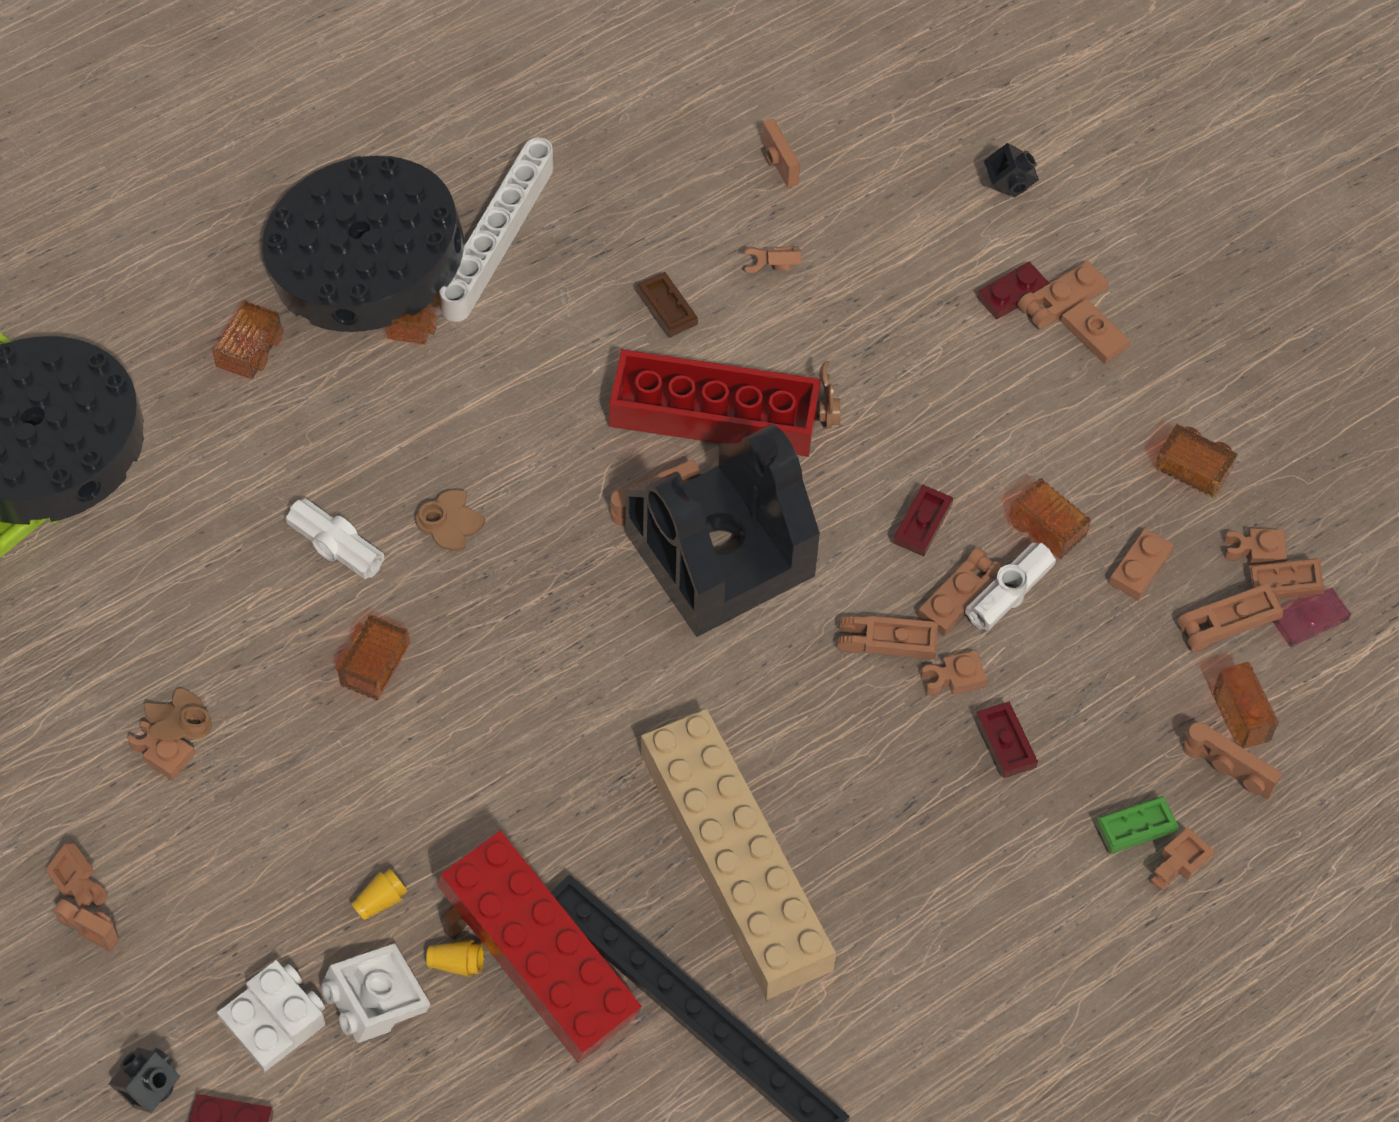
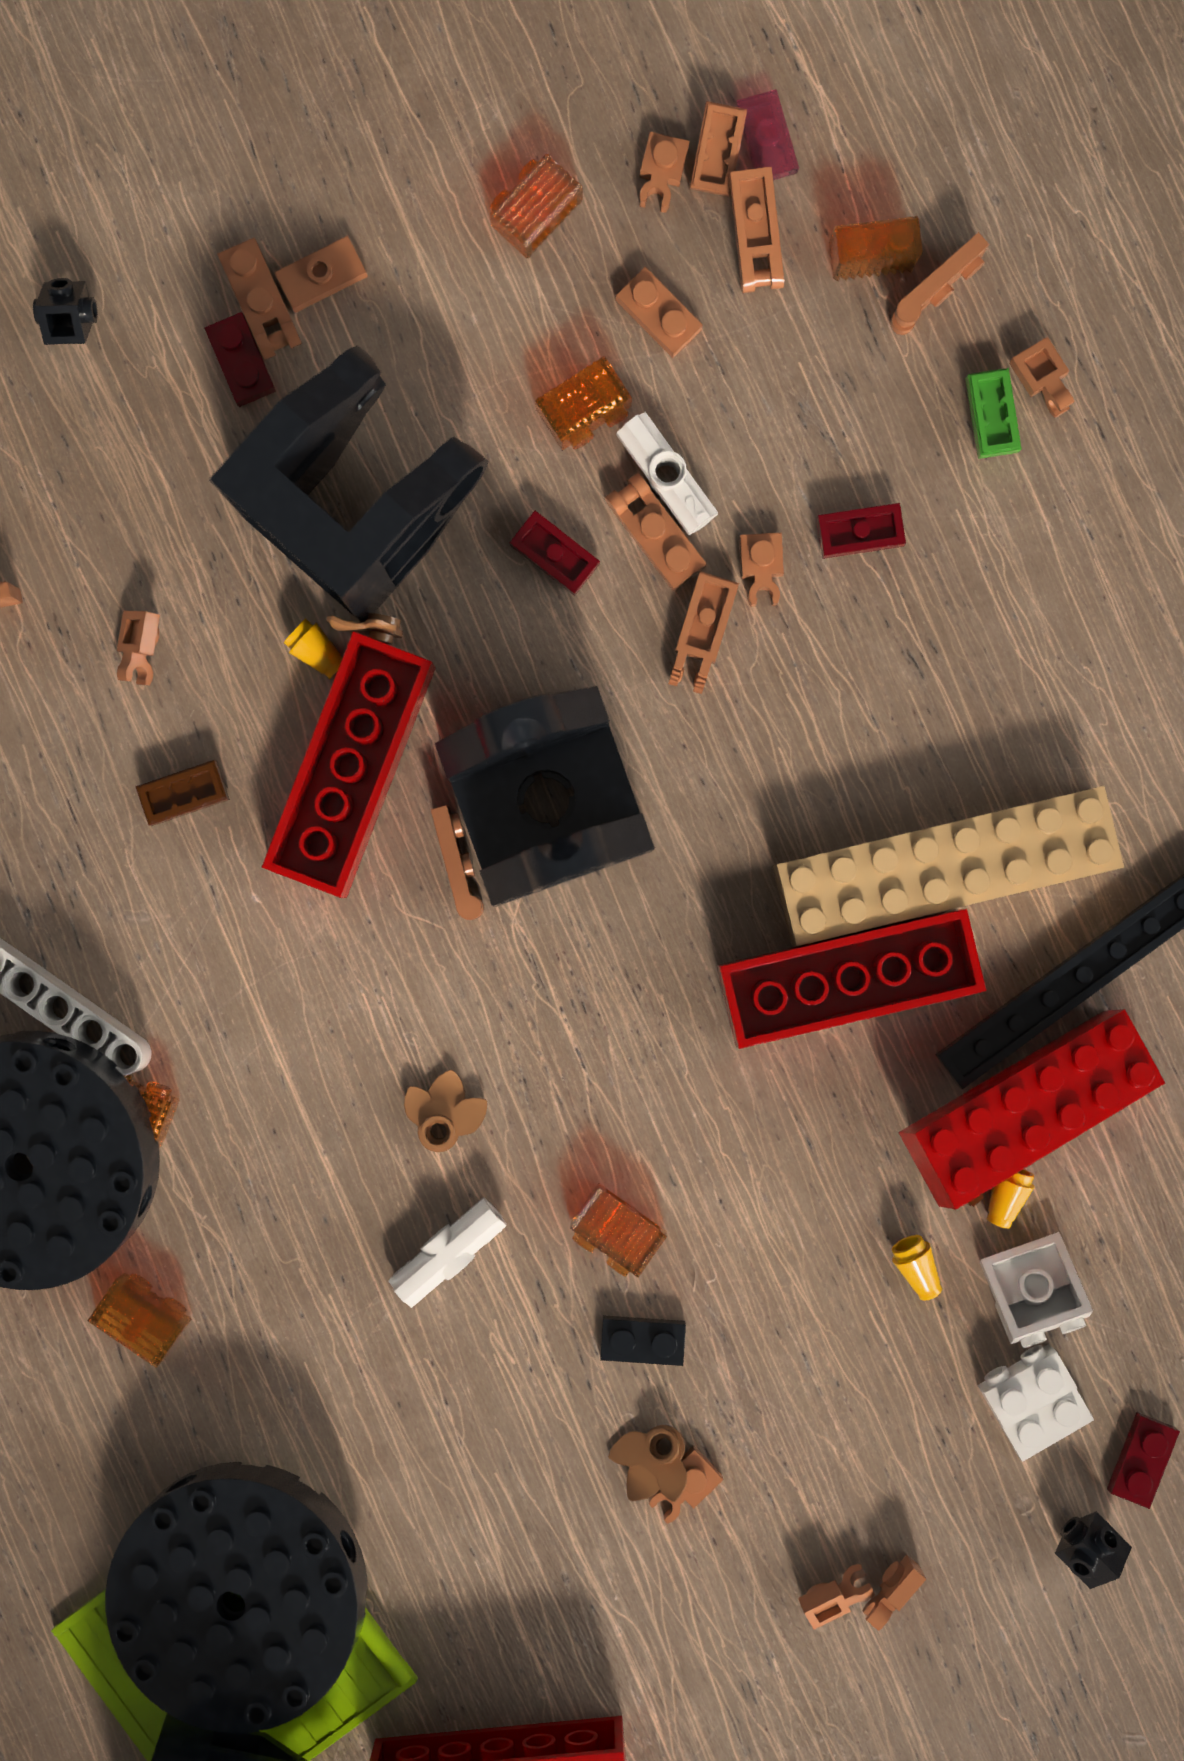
camera: 75 degrees left, 30 degrees up
(281, 696) = (643, 1340): none -> black plate
(623, 790) = (851, 978): none -> red brick
(805, 362) = (314, 648): none -> yellow cone
(908, 331) = (299, 446): none -> black brick

